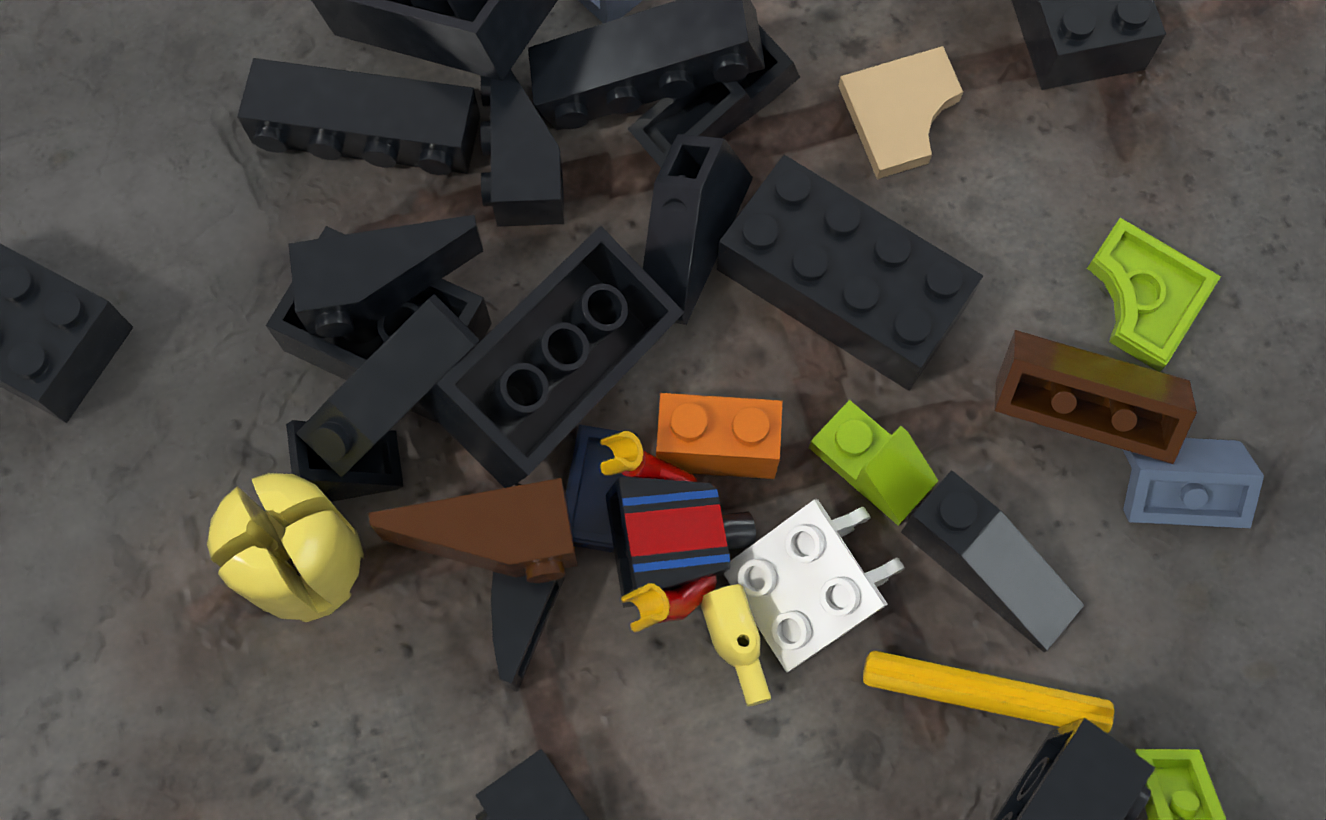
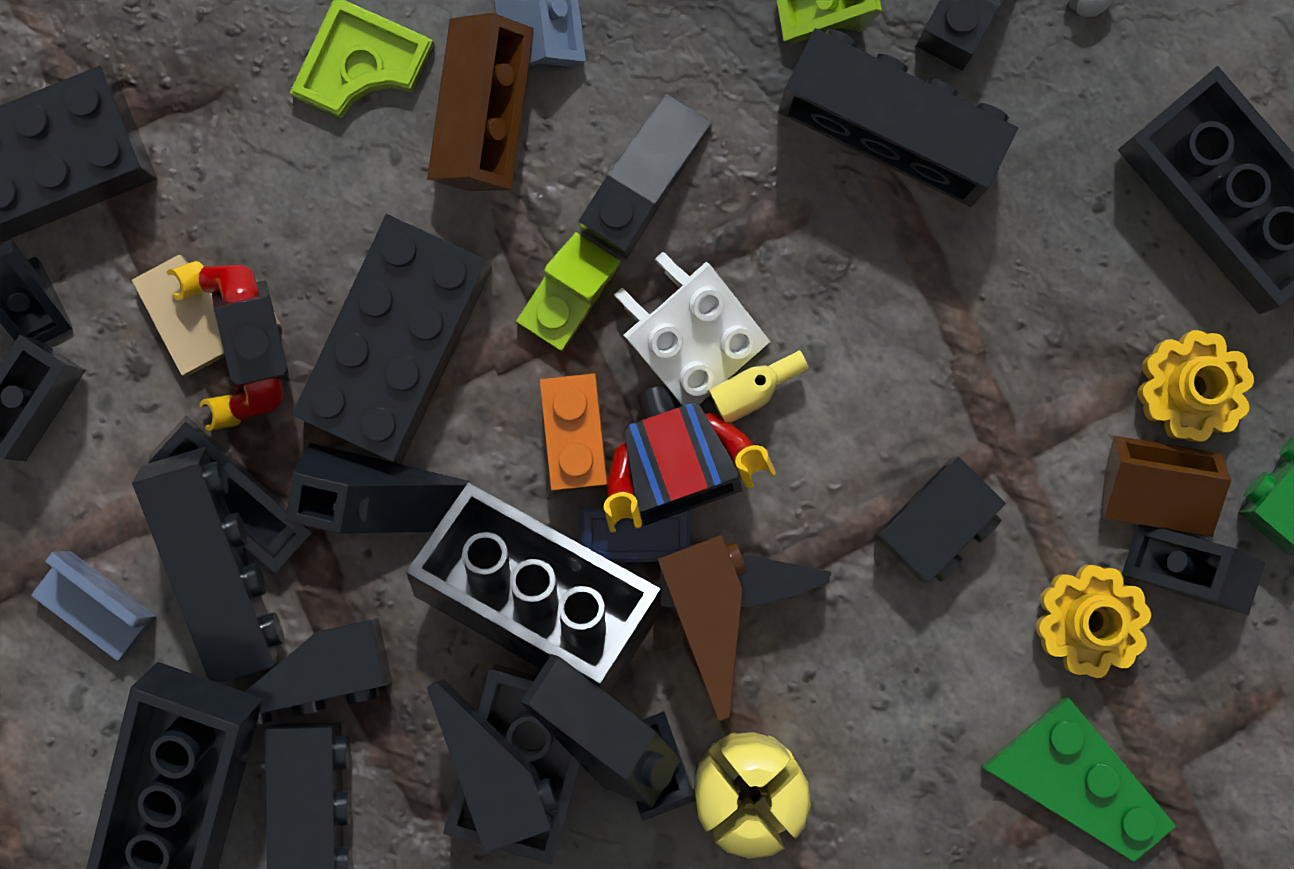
camera: 95 degrees left, 15 degrees up
(869, 124) = (247, 337): none -> torso
(984, 691) = (758, 168): yellow axle -> none

